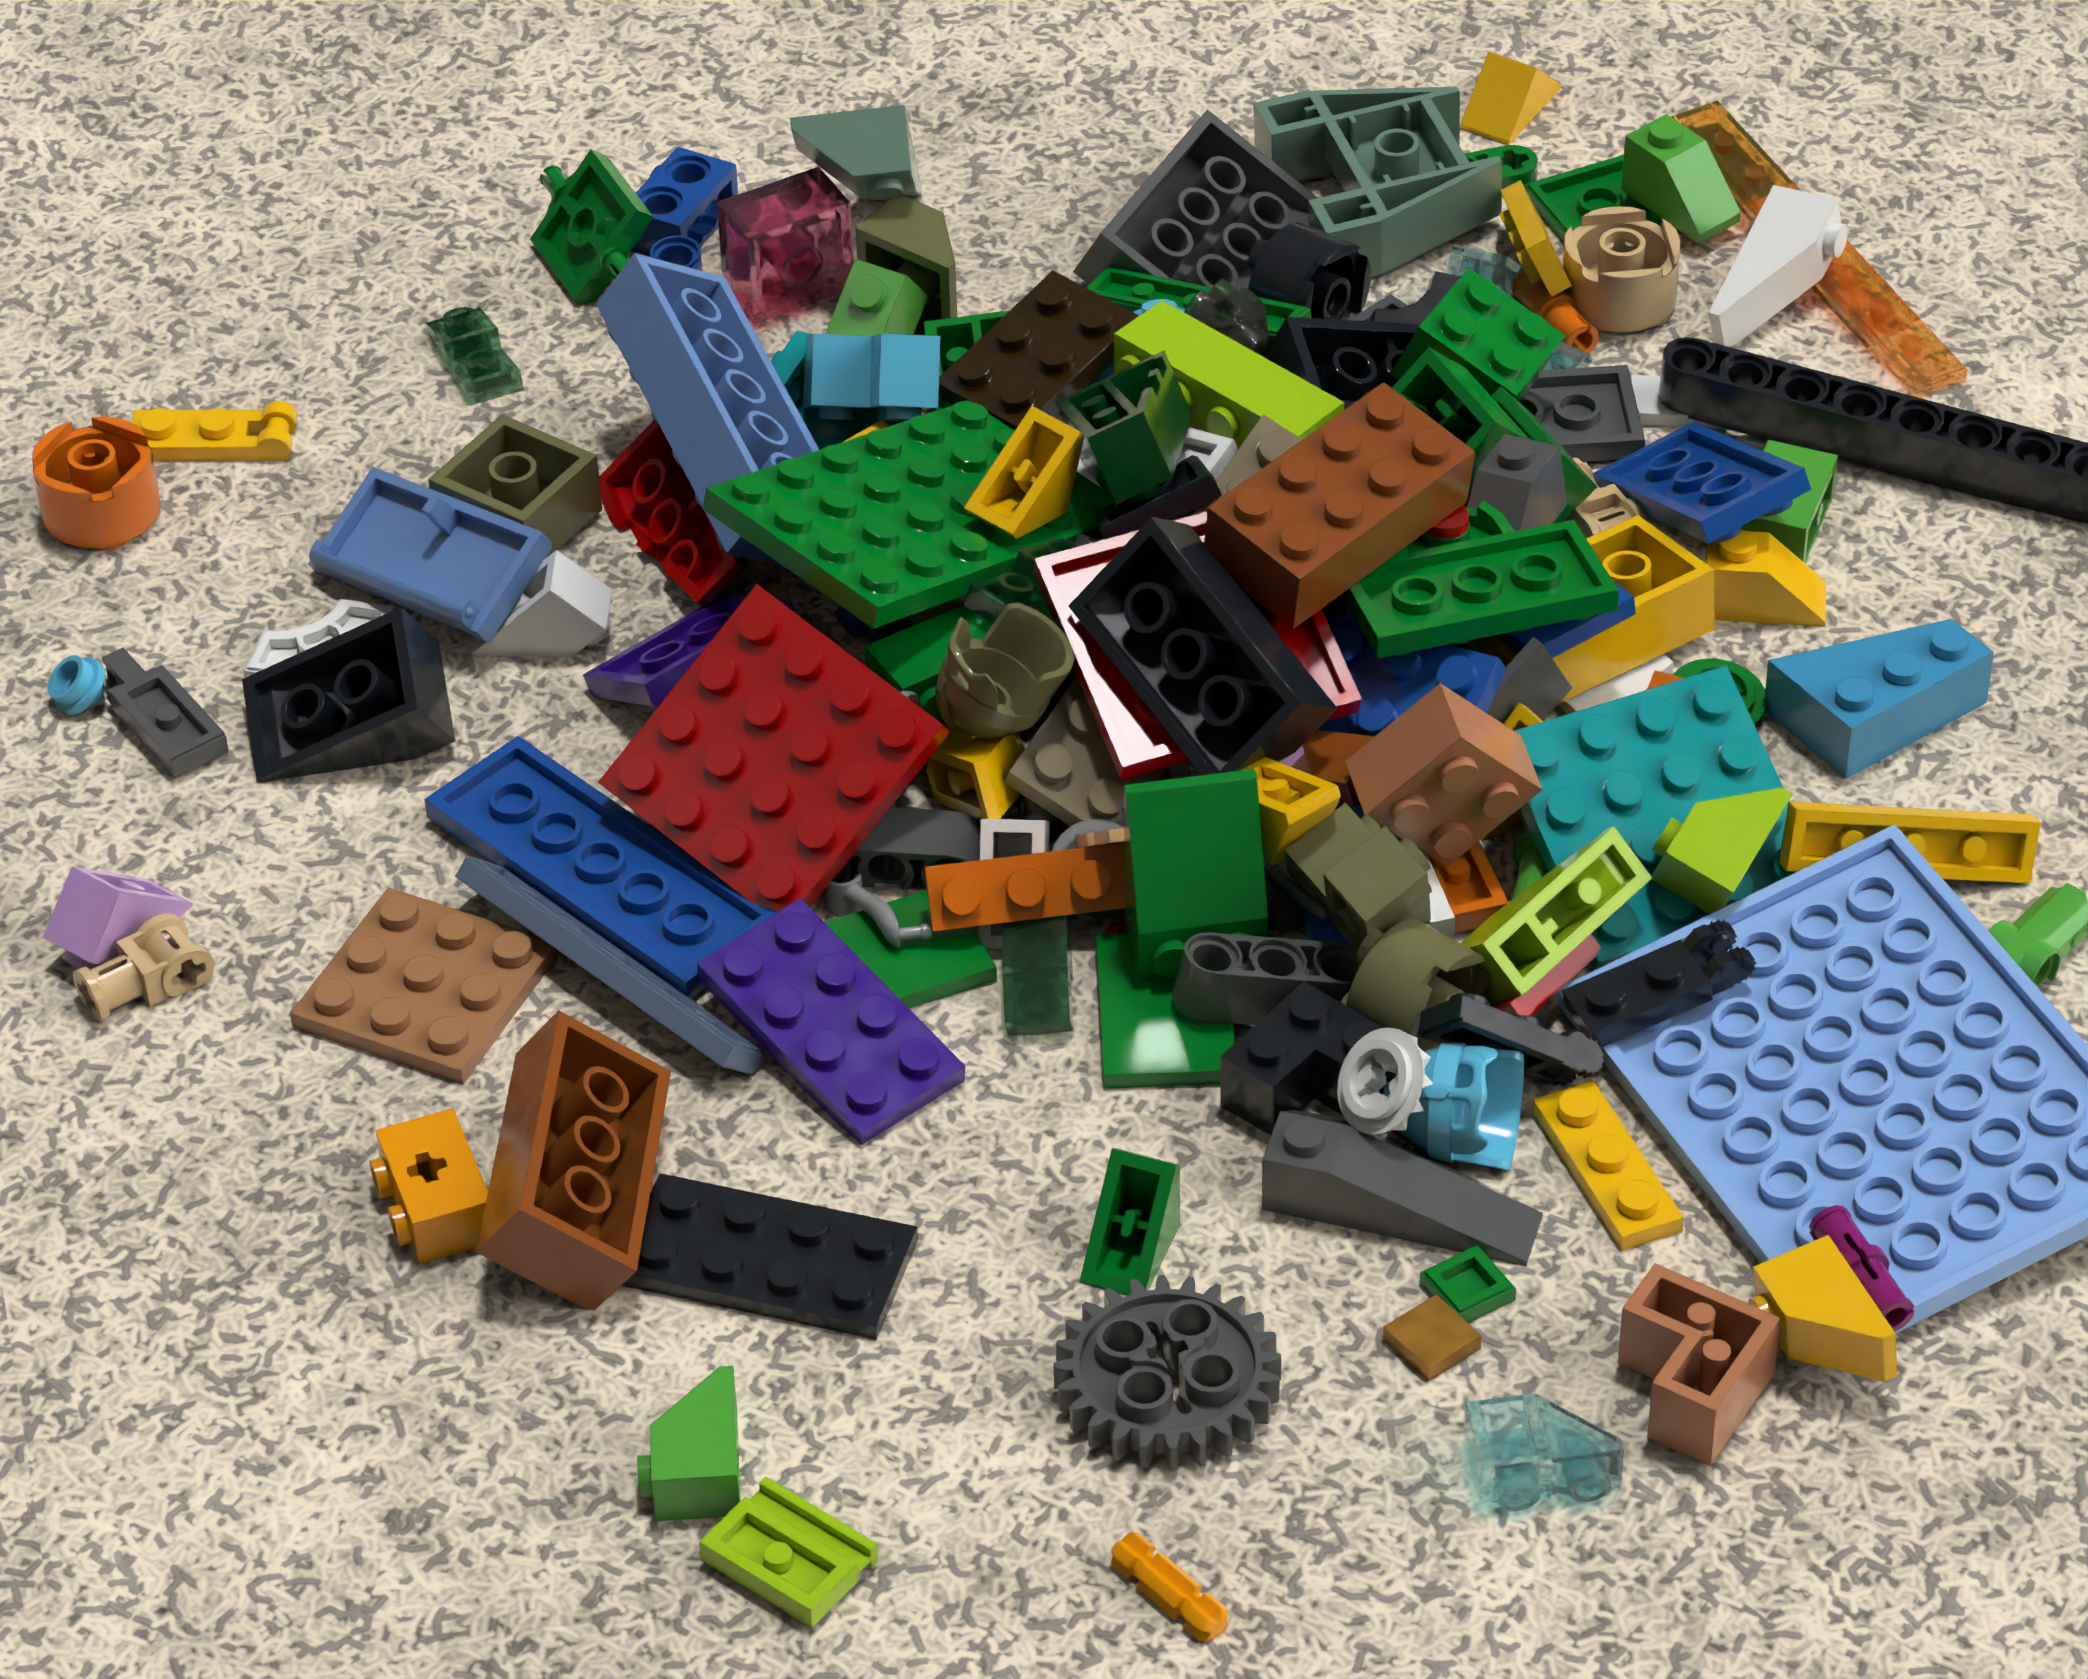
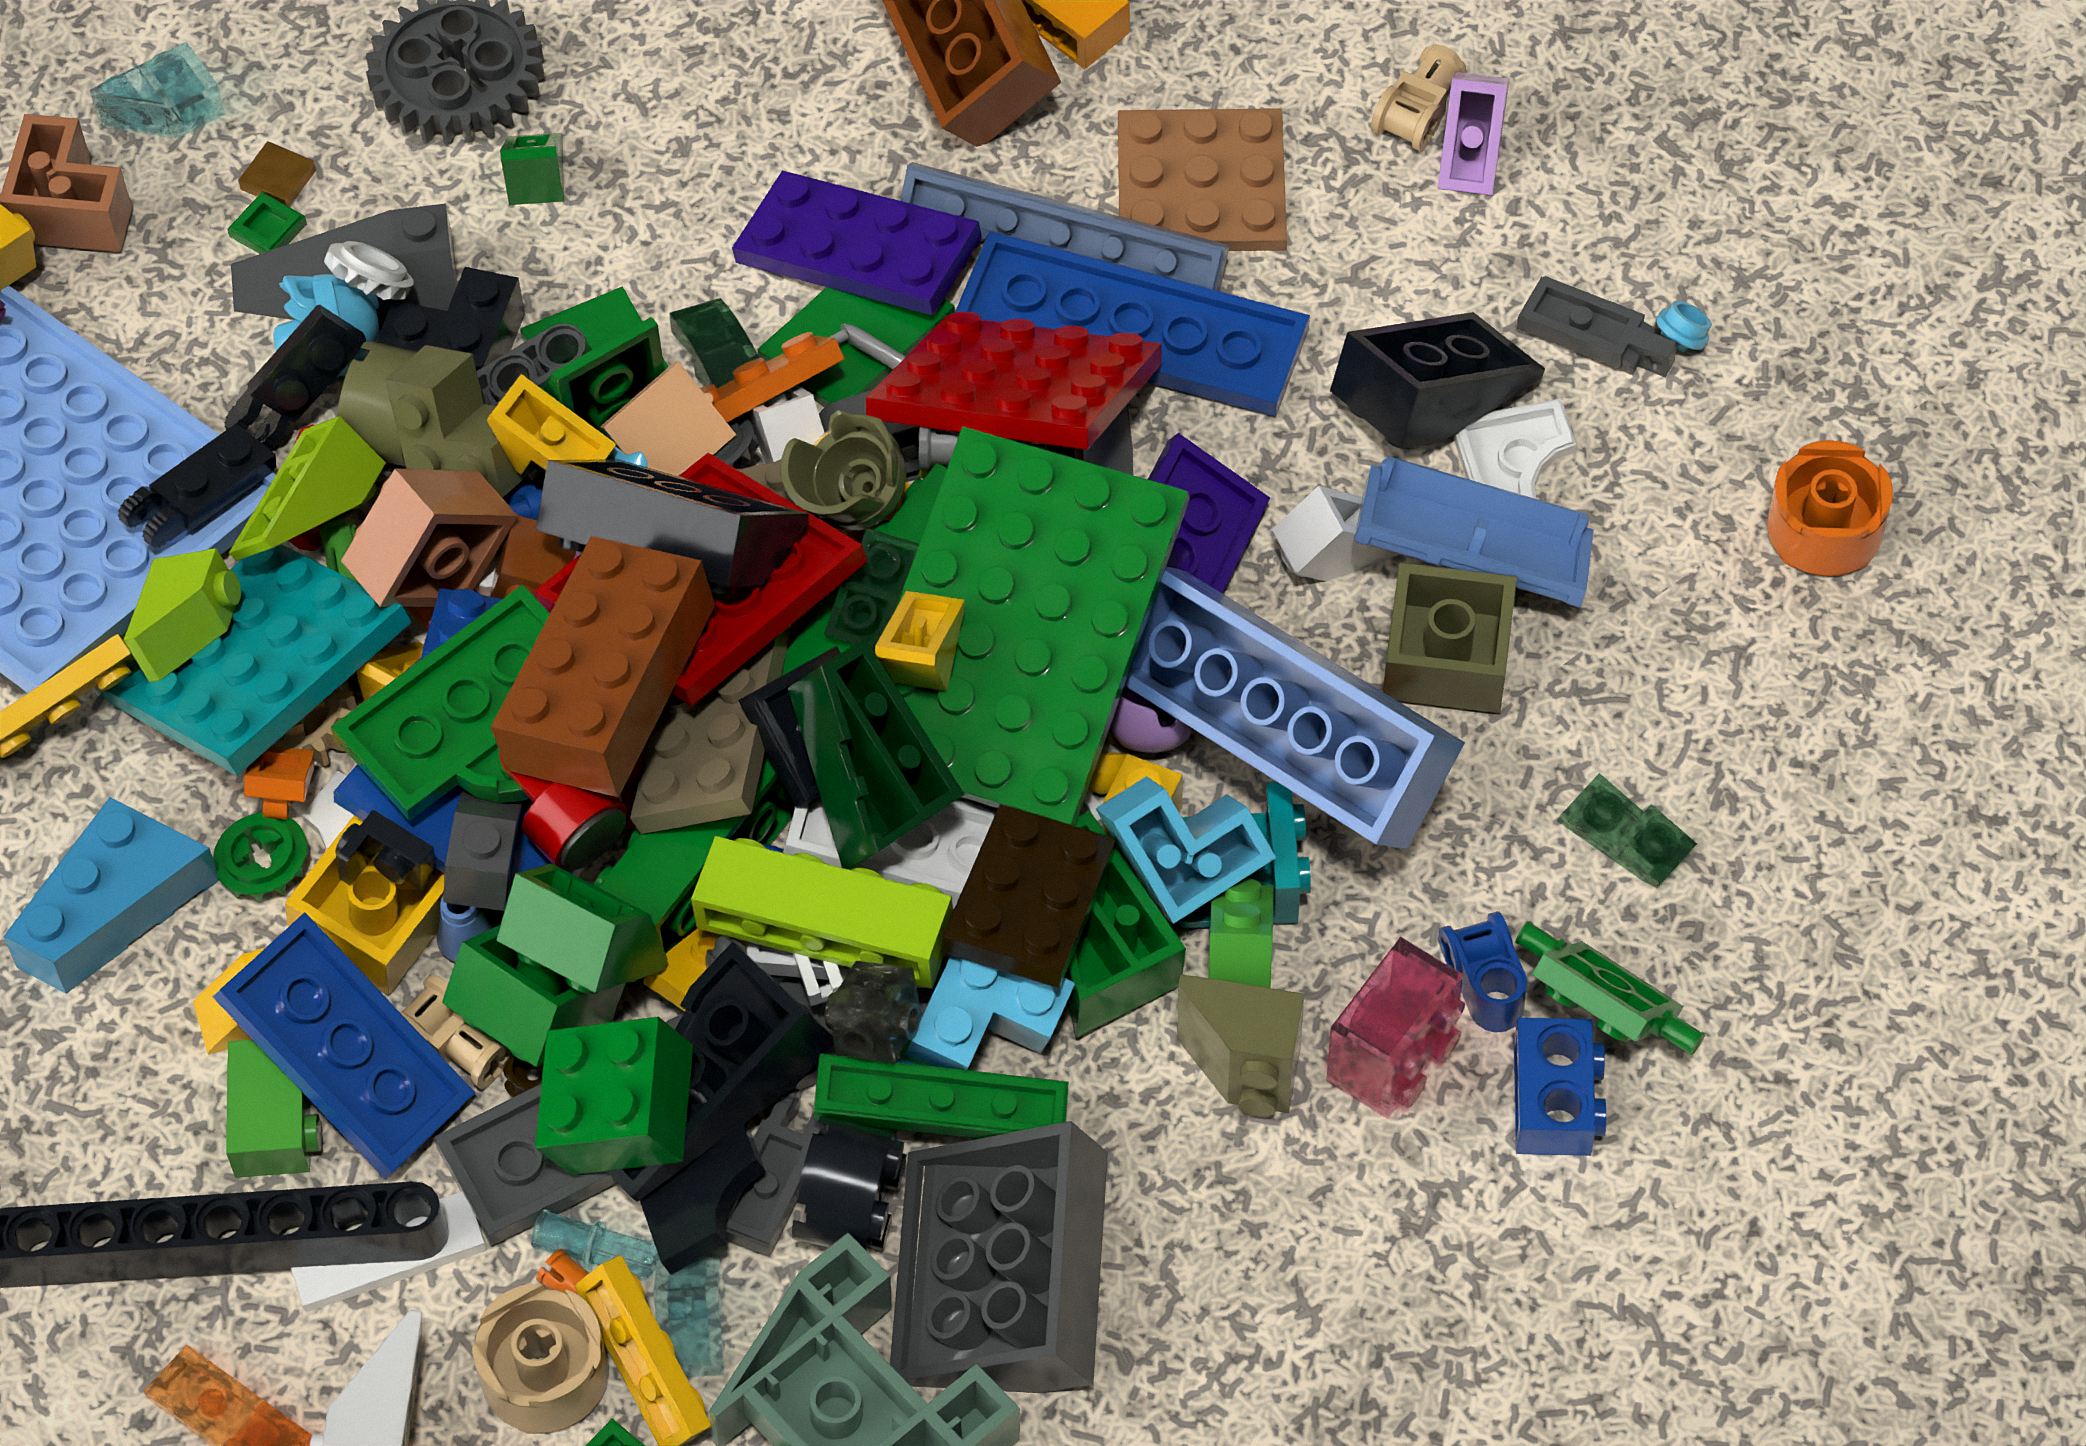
camera: 155 degrees right, 15 degrees up
(219, 433) = (1794, 642): yellow plate -> none
(772, 1256) = (797, 63): black plate -> none
(862, 150) = (1346, 1083): sand green wedge -> none
(1607, 1165) = (188, 357): yellow plate -> none
(1624, 553) = (393, 849): none -> black bracket

